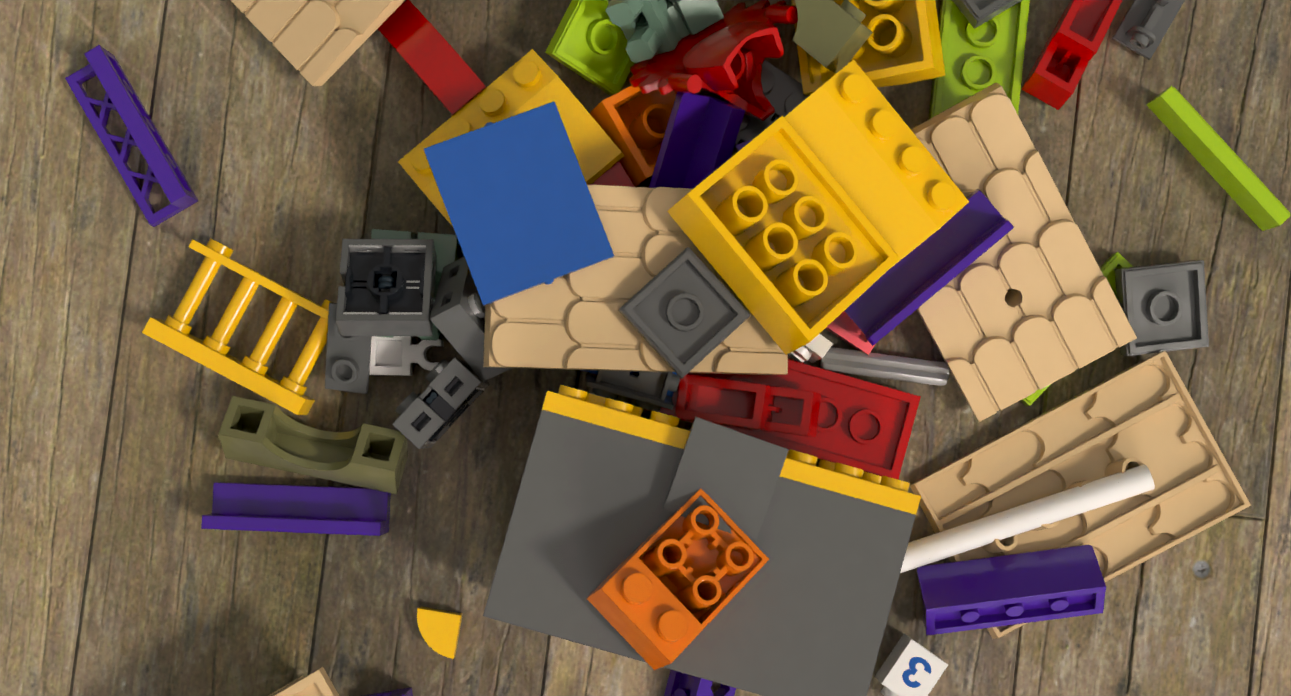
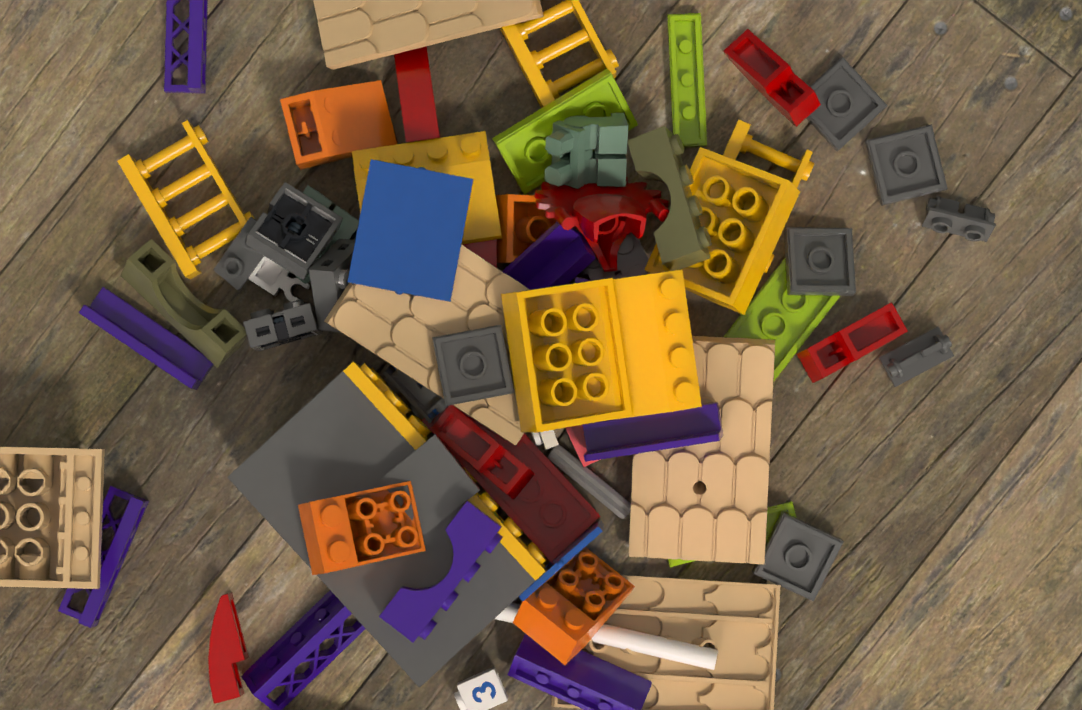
camera: 30 degrees right, 0 degrees up
(358, 141) = (336, 121): none -> orange slope
(440, 629) = (191, 474): yellow tile -> none
(799, 636) = (414, 608): none -> dark purple arch
(924, 455) = (564, 557): none -> blue piece
(956, 514) = (572, 605): none -> orange slope
(1218, 159) = (897, 481): lime tile -> none

